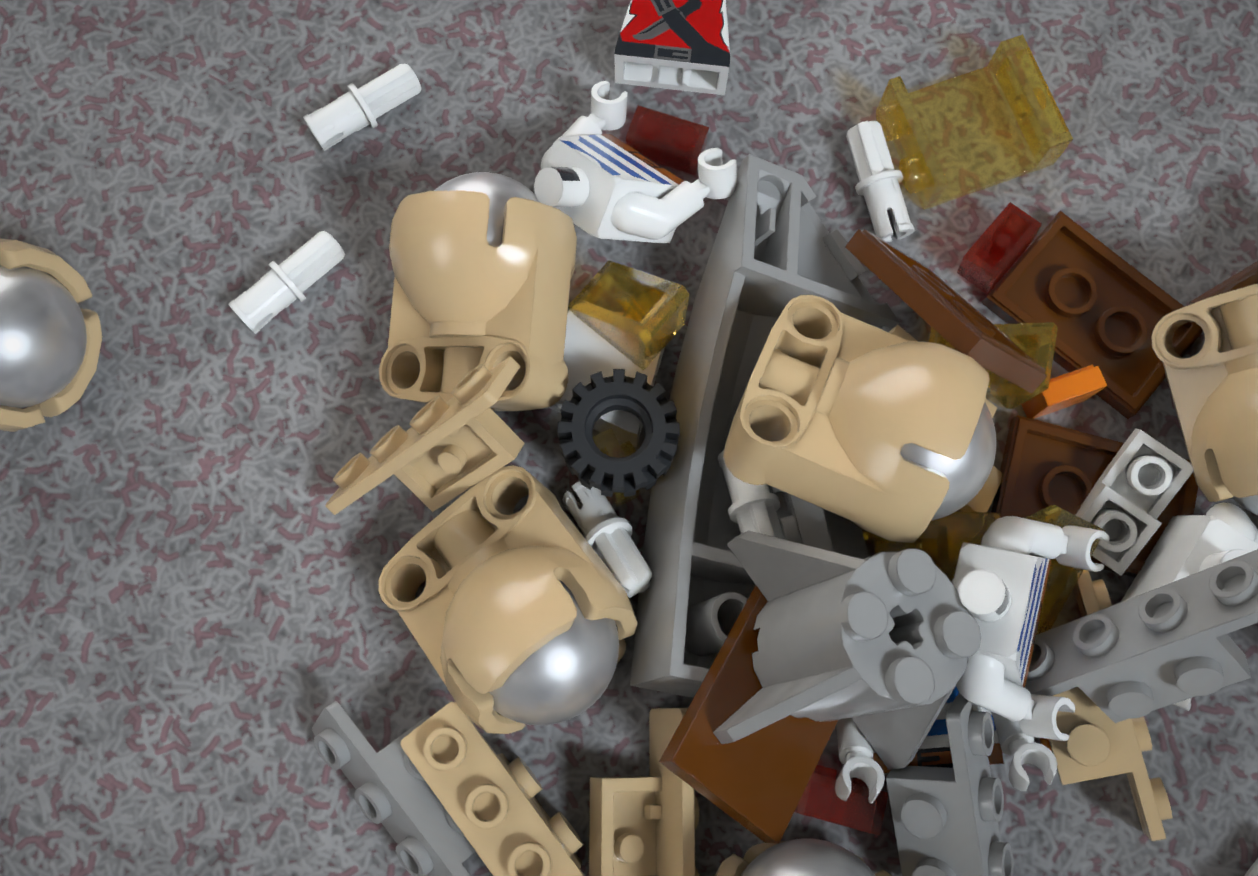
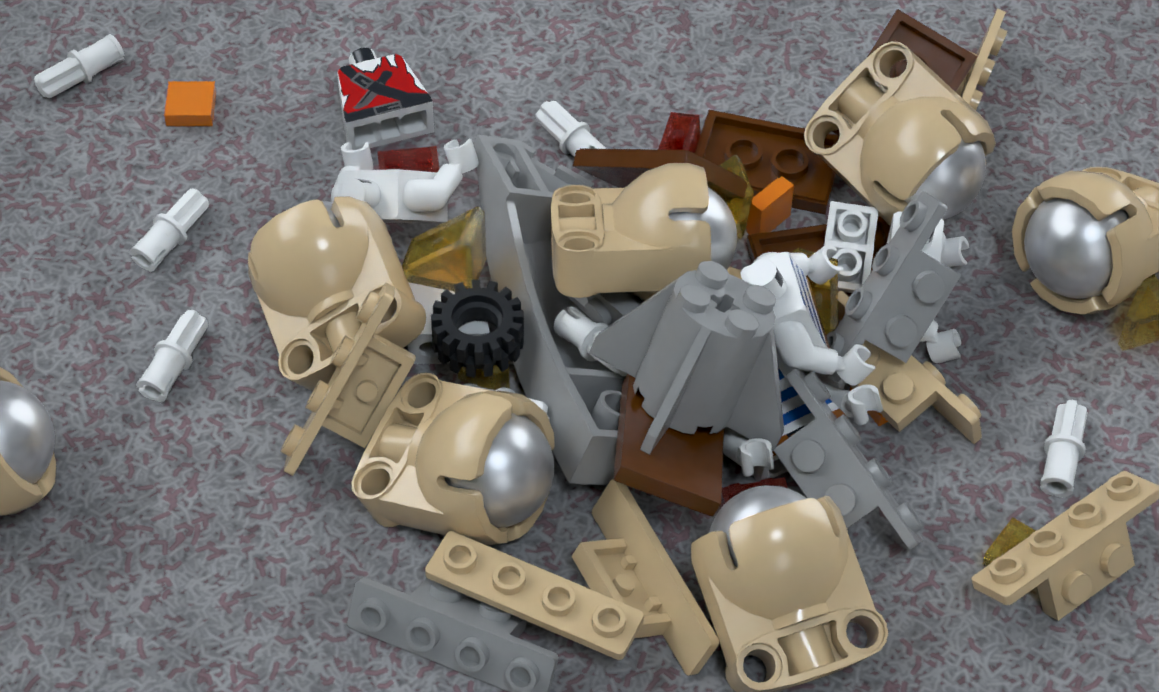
camera: 25 degrees left, 25 degrees down
(974, 127) = (623, 84): clear yellow panel -> none

